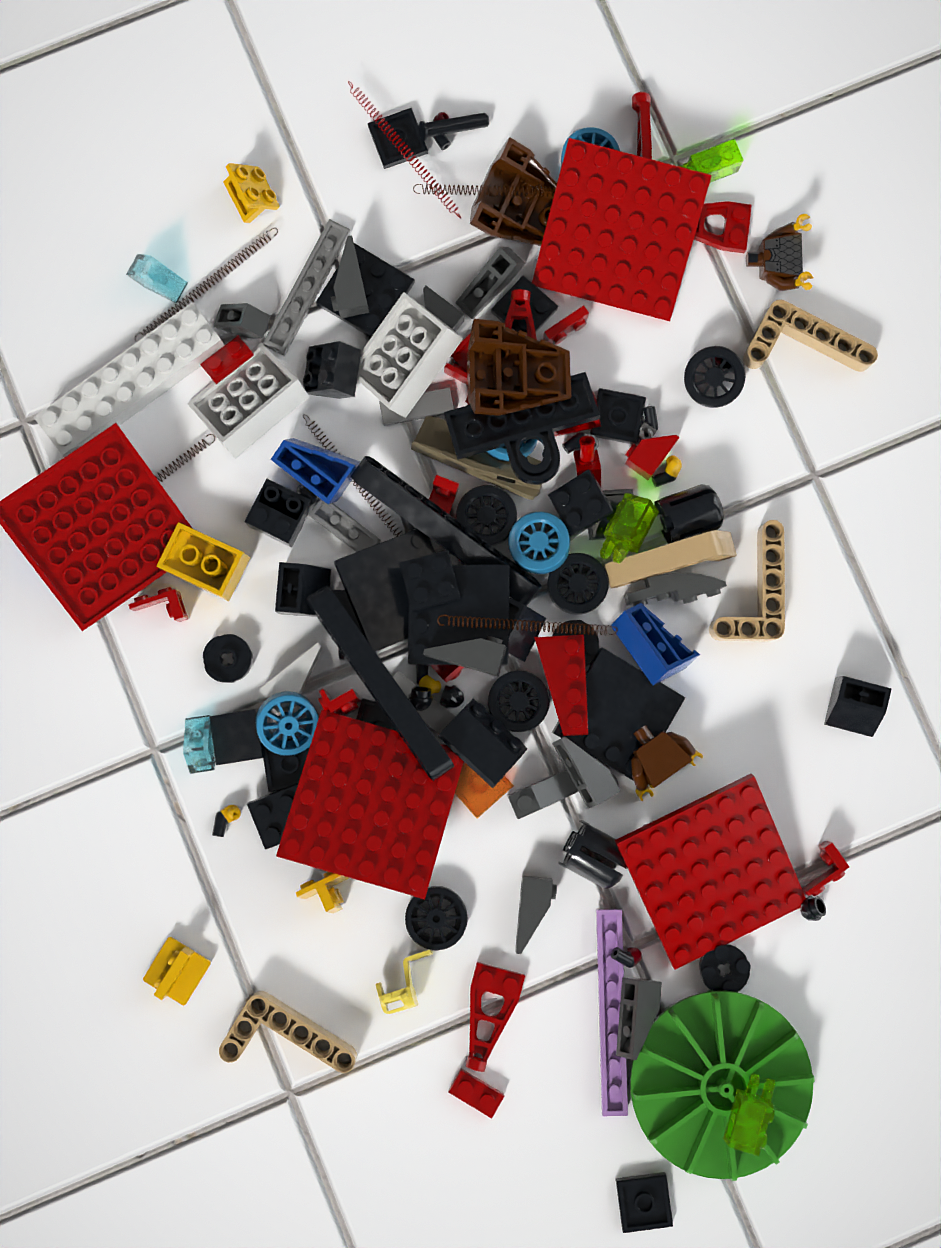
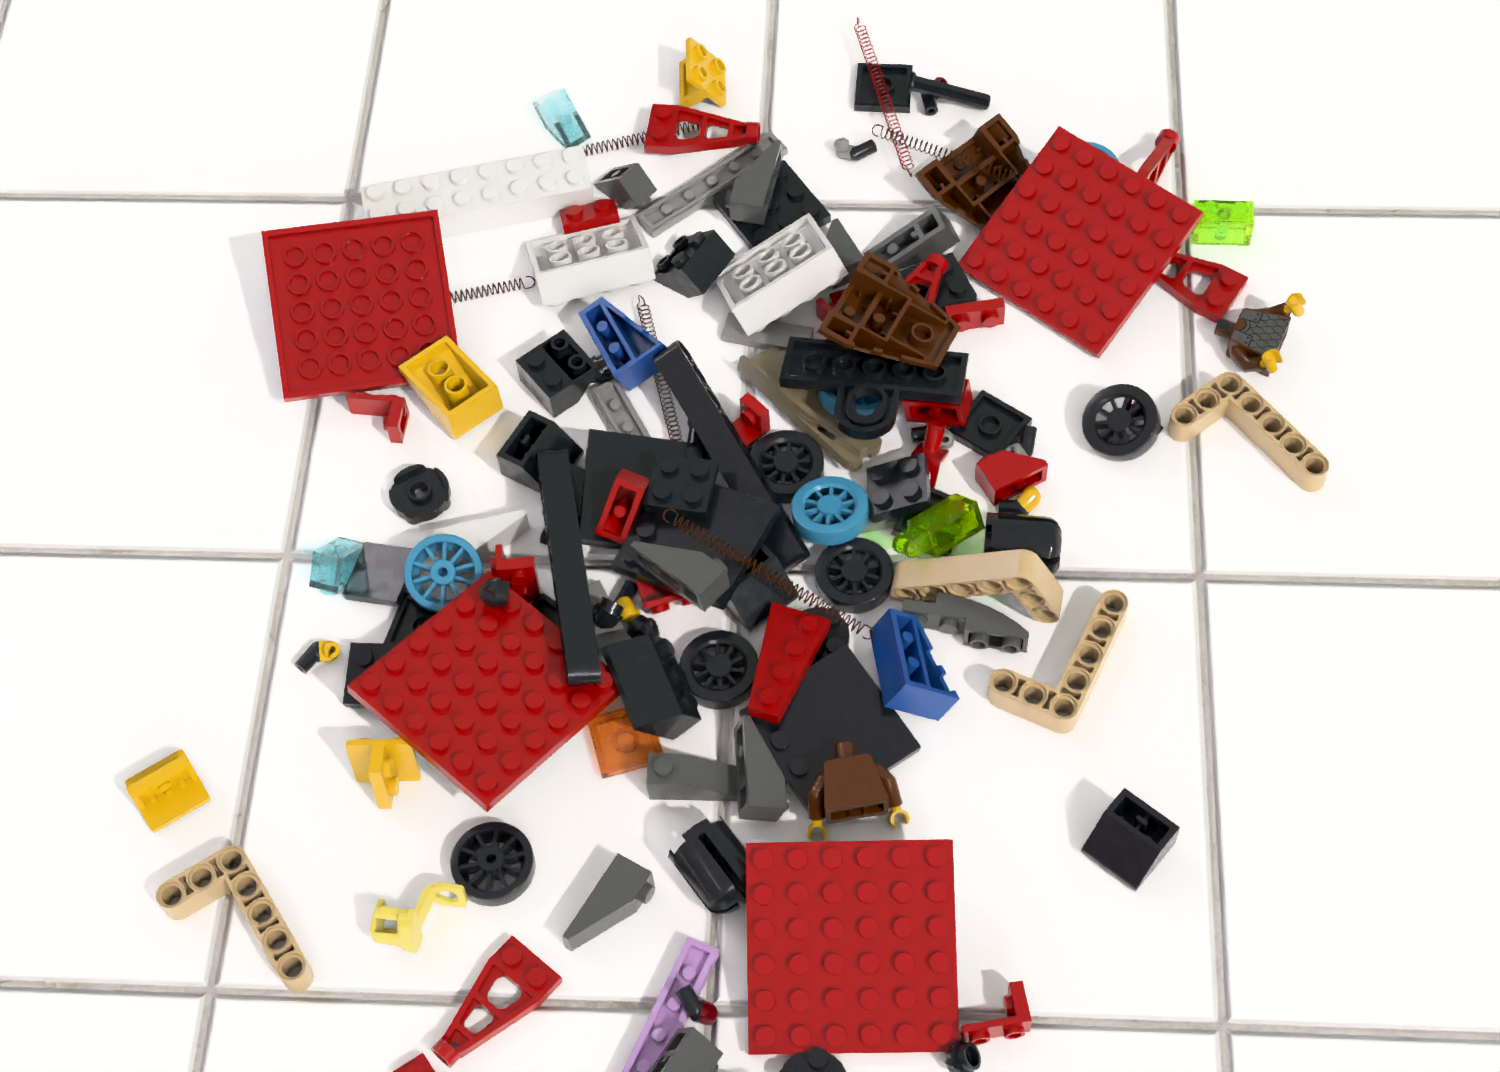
camera: 35 degrees right, 25 degrees down
(245, 255) = (664, 124): none -> red plate
(341, 732) = (495, 592): none -> black plate
(394, 613) = (622, 506): none -> red slope
(400, 212) = (852, 152): none -> arm

